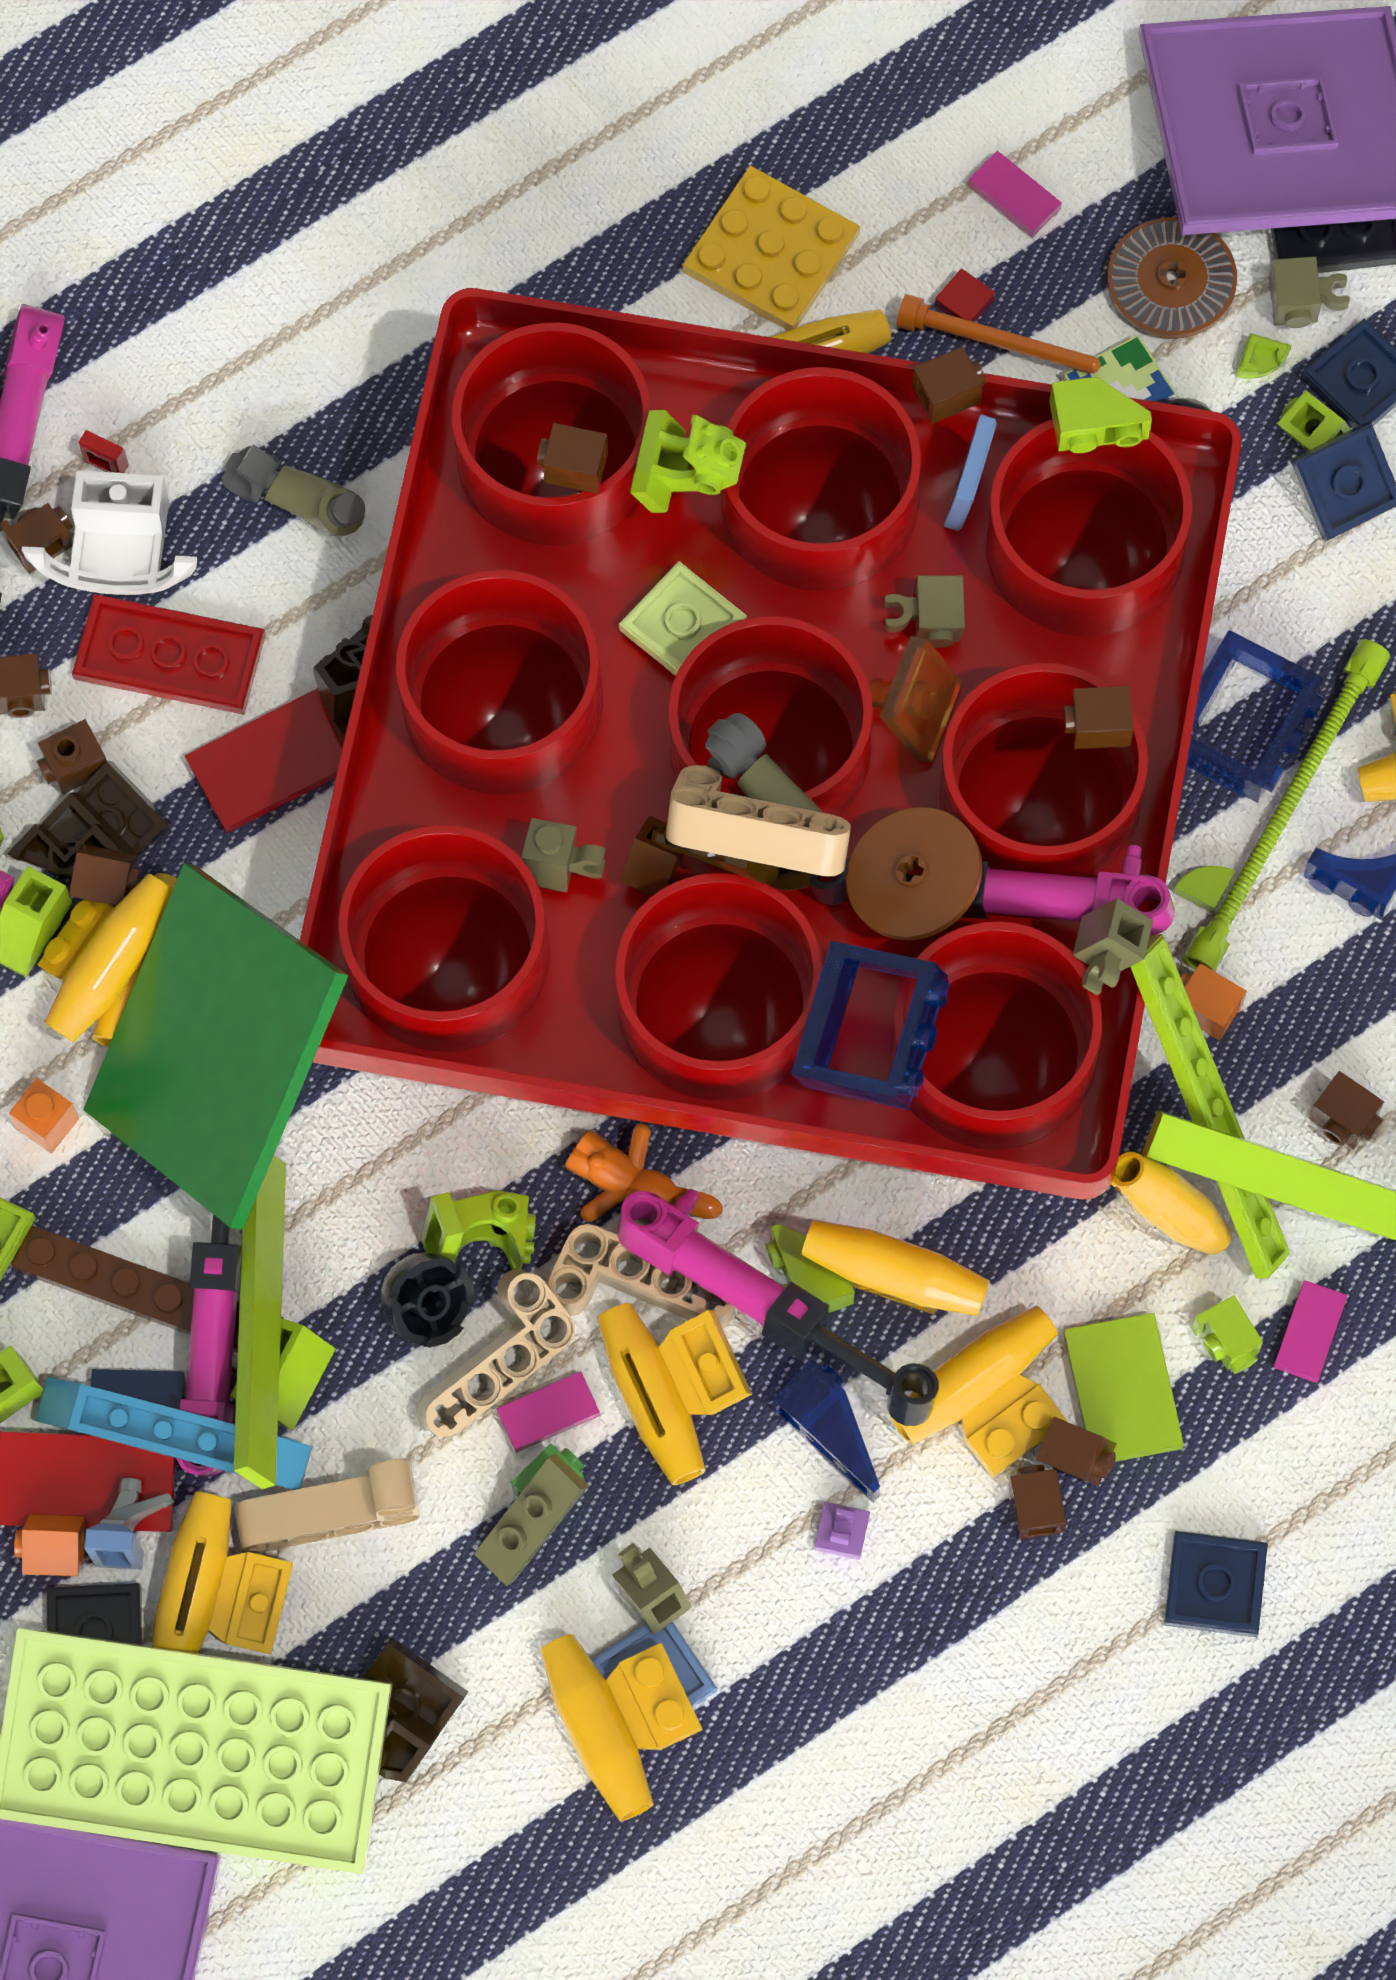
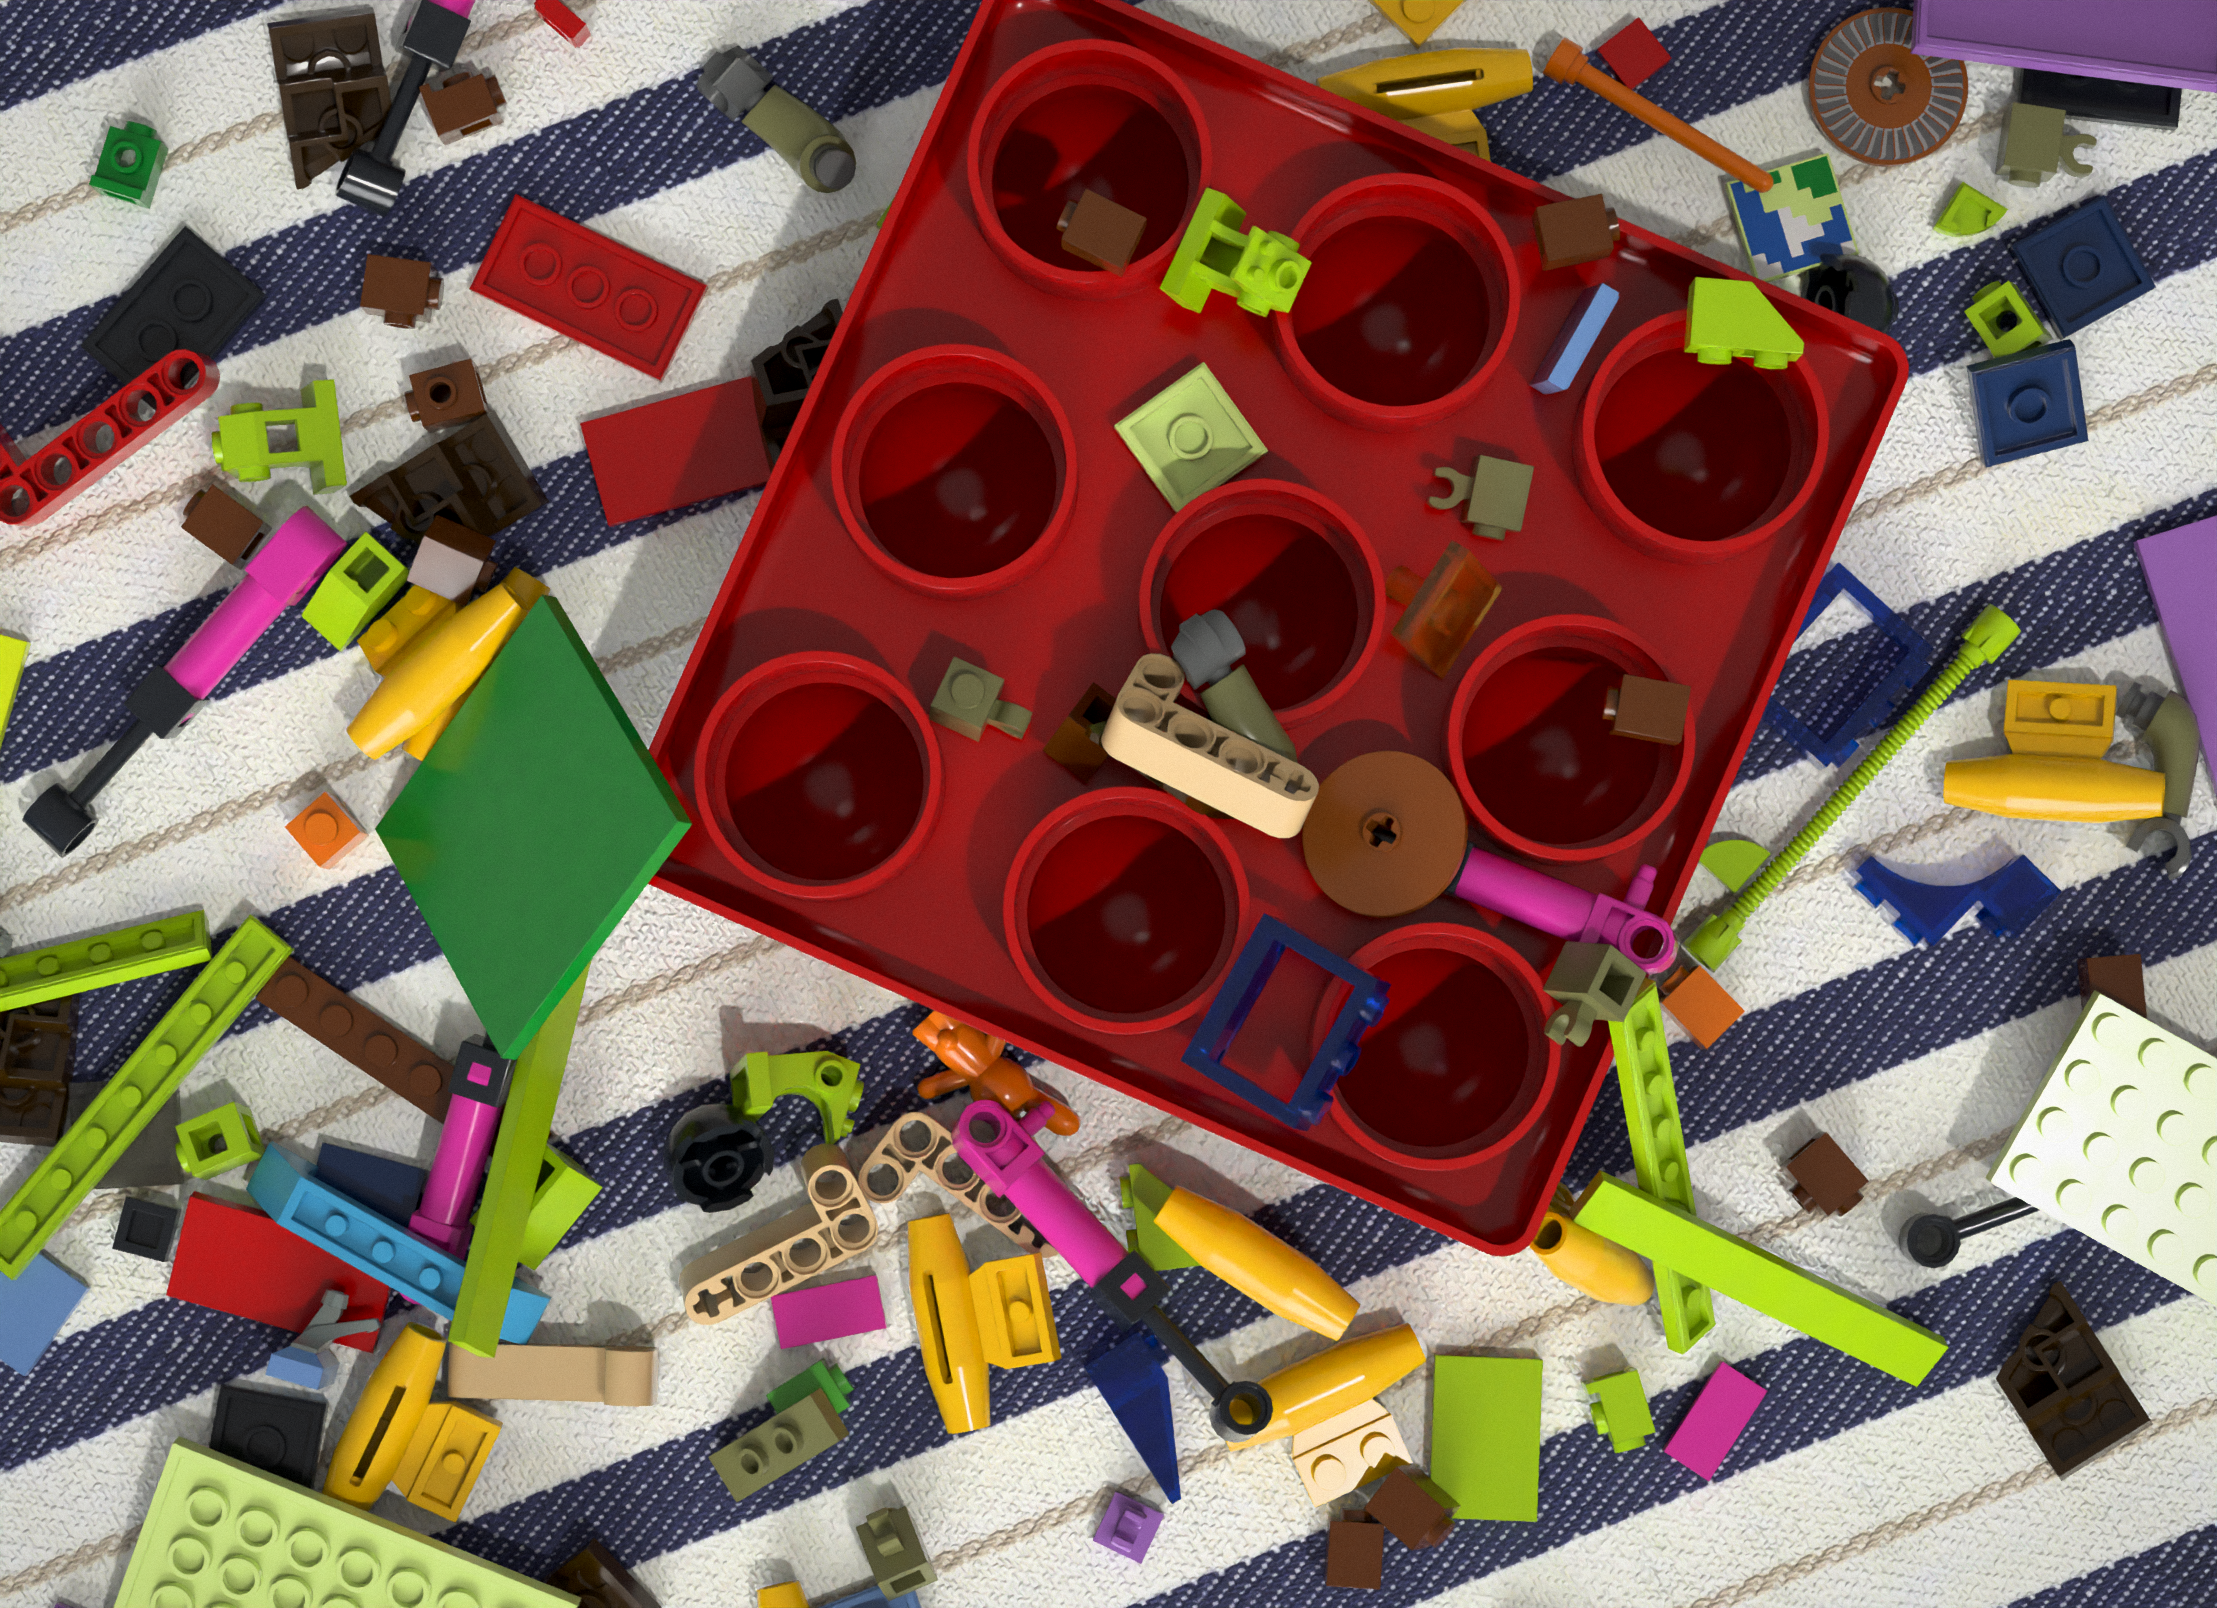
camera: 10 degrees right, 15 degrees up
(51, 1545) = (234, 1342): orange brick -> none
(116, 537) = (554, 134): white piece -> none

